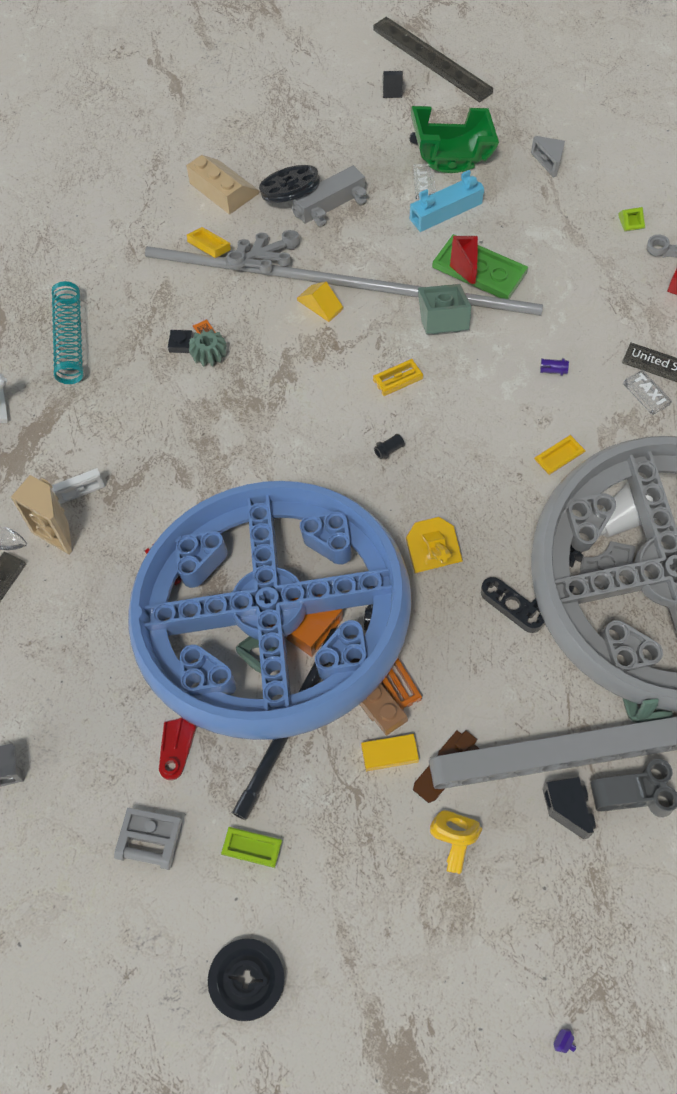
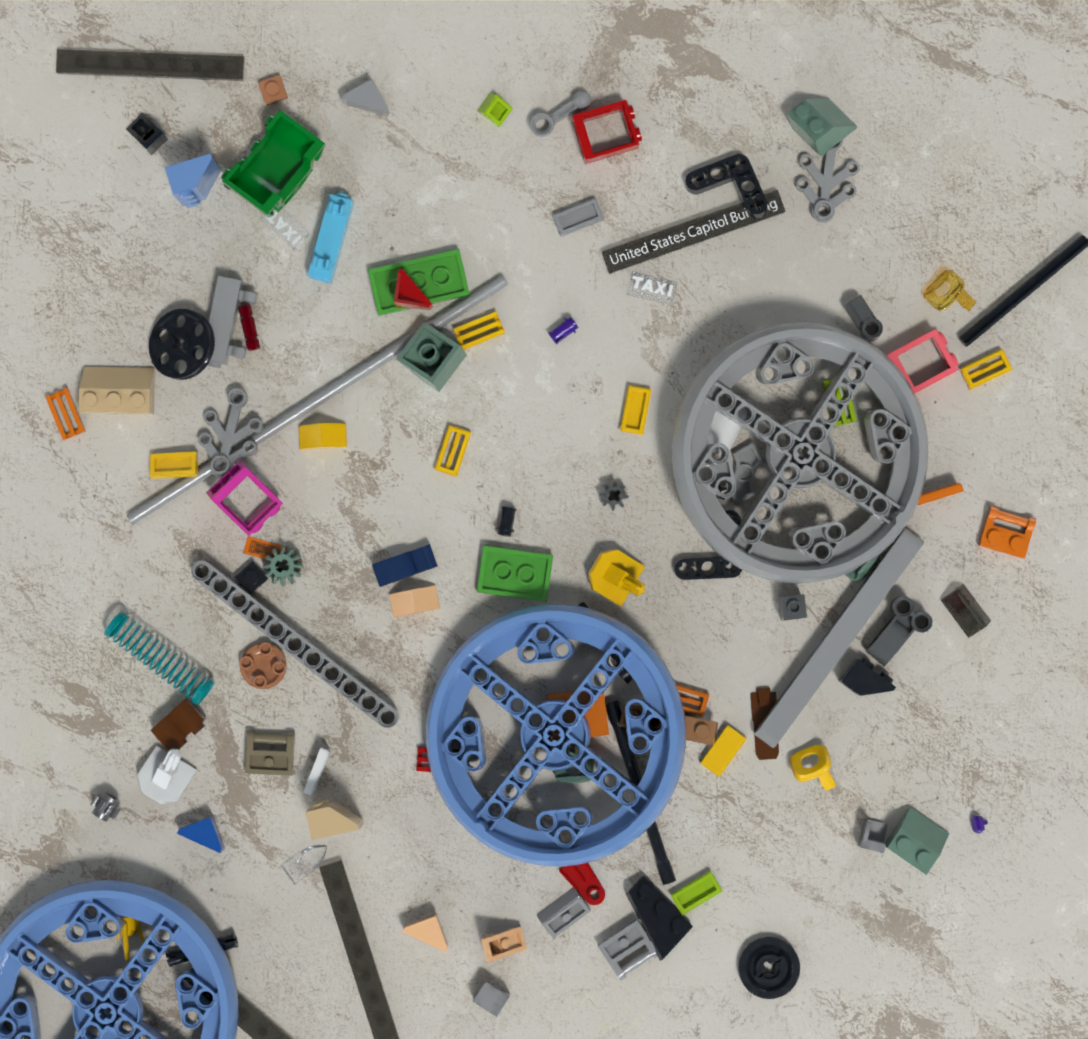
camera: 50 degrees left, 25 degrees up
(21, 668) = (428, 931): none -> light nougat slope
(29, 380) = (178, 725): none -> reddish brown brick
(58, 455) = (269, 761): none -> dark tan plate
(59, 729) = (503, 943): none -> light nougat slope
(124, 394) = (263, 665): none -> nougat dish
(131, 758) = (563, 912): none -> light grey slope
(160, 403) = (284, 639): none -> light grey beam
(175, 172) = (57, 395): none -> orange tile
(200, 834) = (660, 918): none -> black wing
(228, 263) = (228, 483): none -> dark pink window
(270, 441) = (414, 601): none -> light nougat slope
(285, 412) = (404, 565): none -> dark blue piece
(341, 212) = (249, 327): none -> dark red axle
(359, 480) = (515, 573): none -> bright green plate
(392, 103) = (193, 179): none -> medium blue slope
(453, 951) = (873, 835): none -> flat silver panel
(486, 492) = (614, 489): none -> dark grey gear
(490, 996) = (917, 840): none -> sand green slope
(493, 321) = (497, 323): none -> yellow tile
(497, 114) = (273, 90): none -> nougat plate
(556, 689) = (792, 607): none -> dark grey brick
(632, 314) = (578, 217): none -> light grey tile

